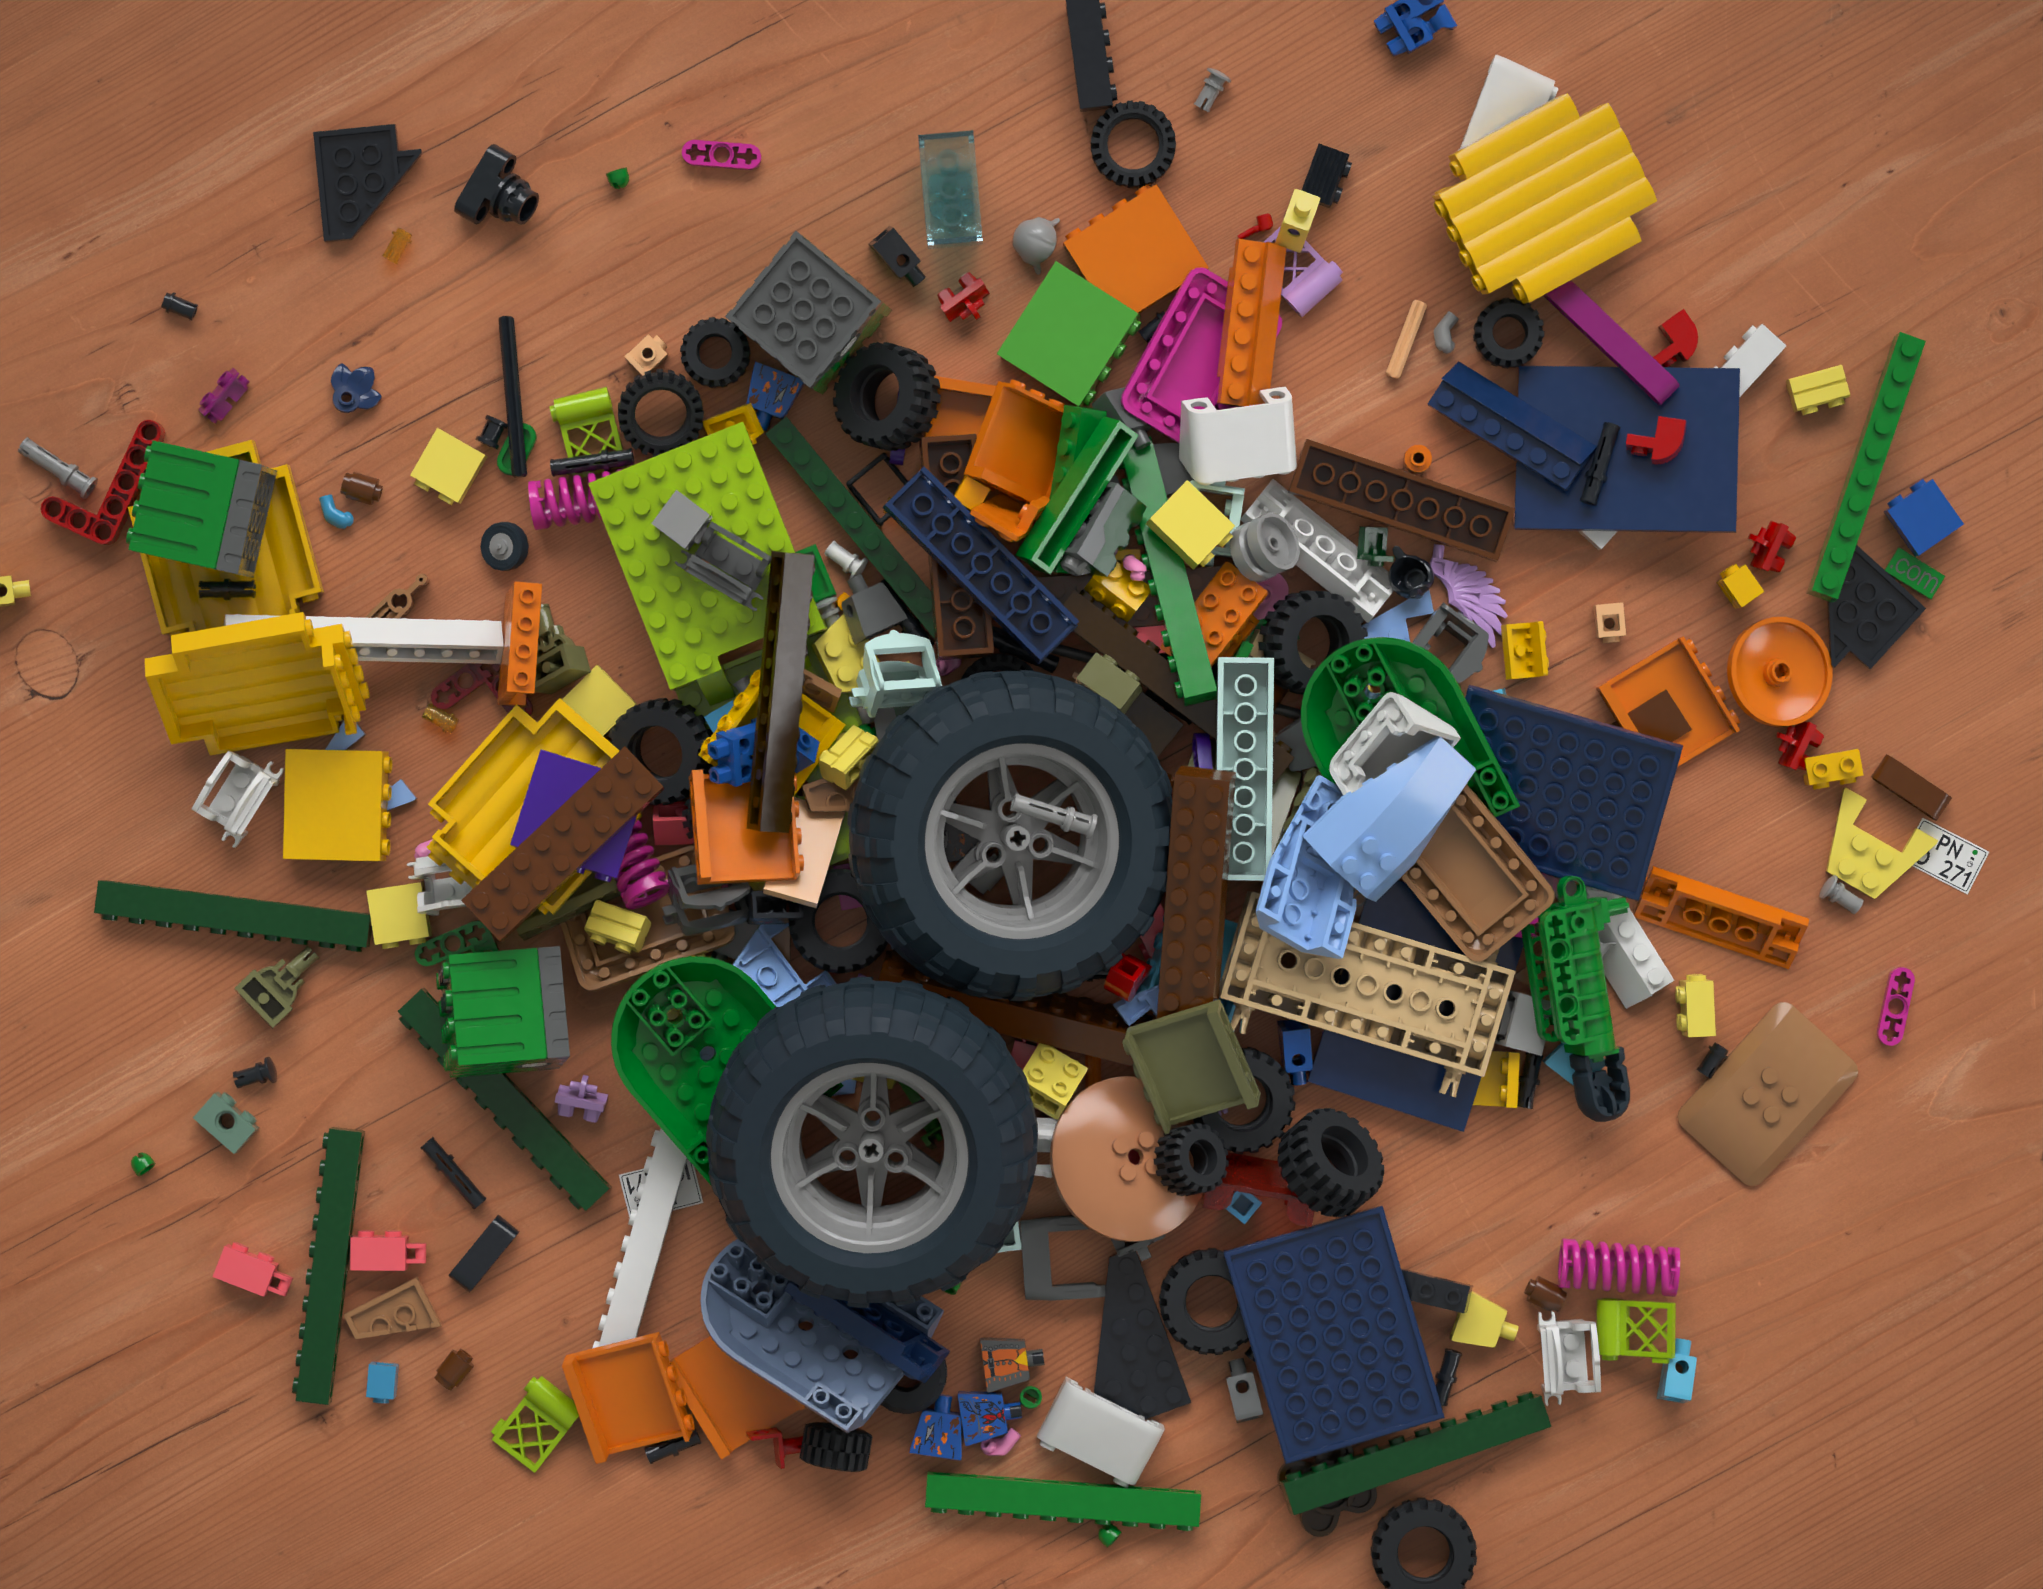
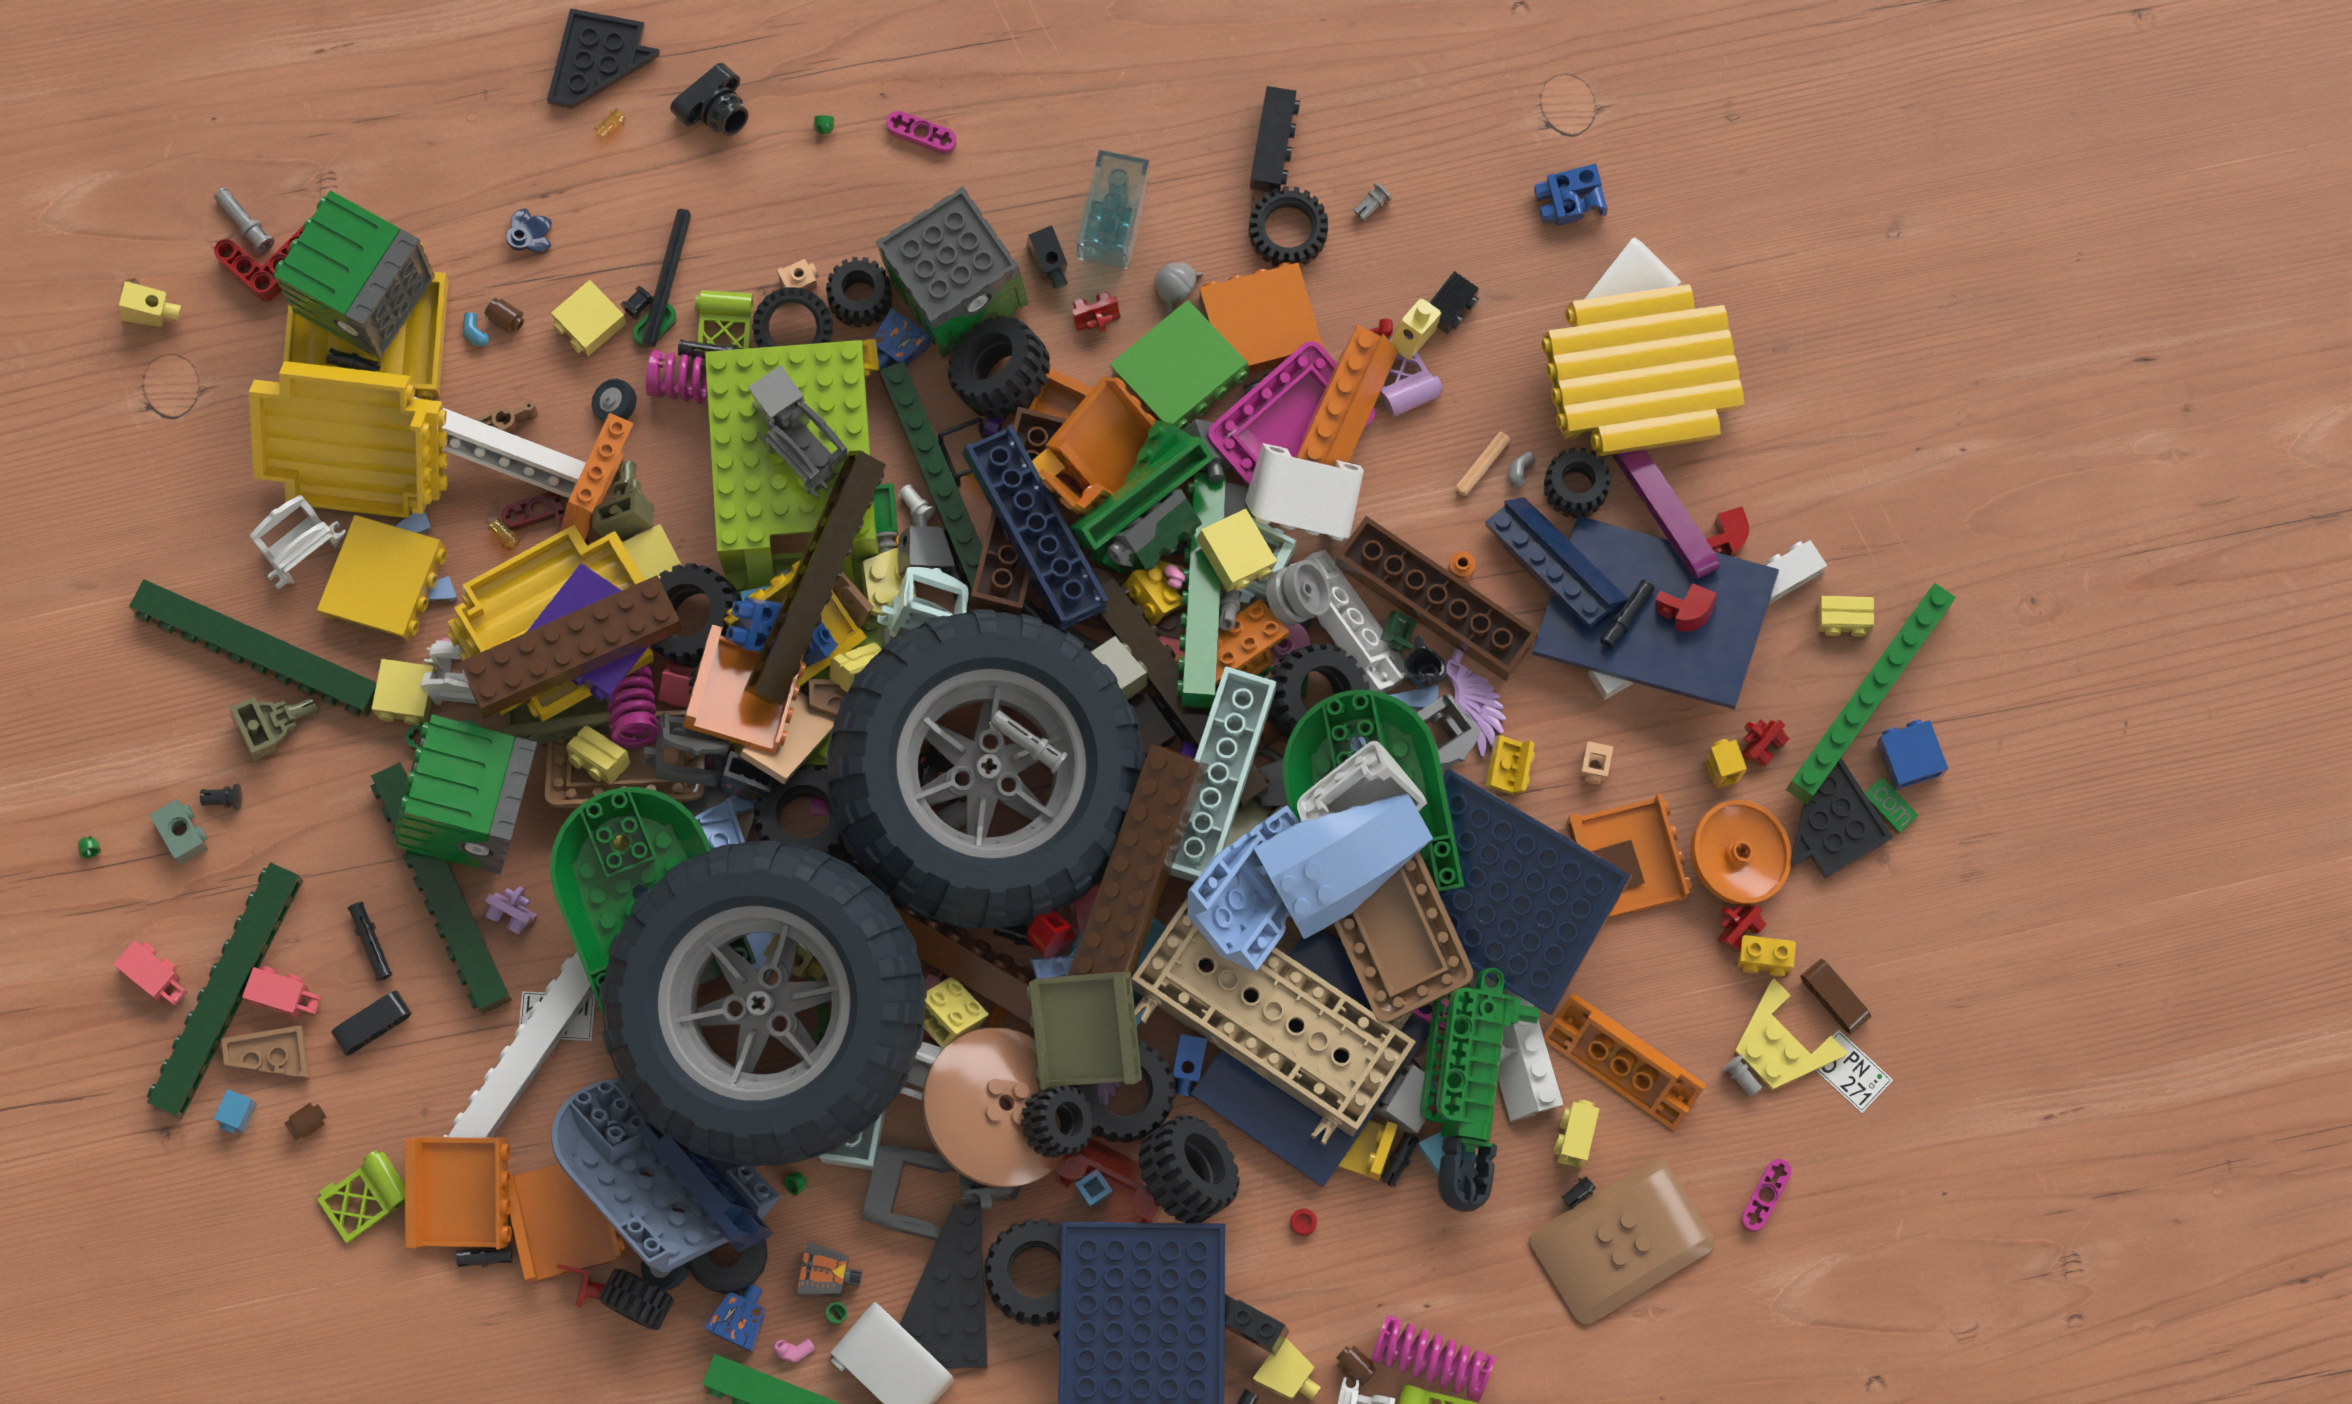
camera: 15 degrees right, 15 degrees down
(179, 306) = (399, 117): black pin -> none
(216, 402) = (403, 207): magenta hinge -> none
(985, 1415) = (788, 1317): blue torso -> none
(1199, 582) = (1229, 607): none -> light grey pin
(1245, 1405) = (1039, 1370): dark grey torso -> none
(1453, 1169) = (1303, 1222): none -> red tile

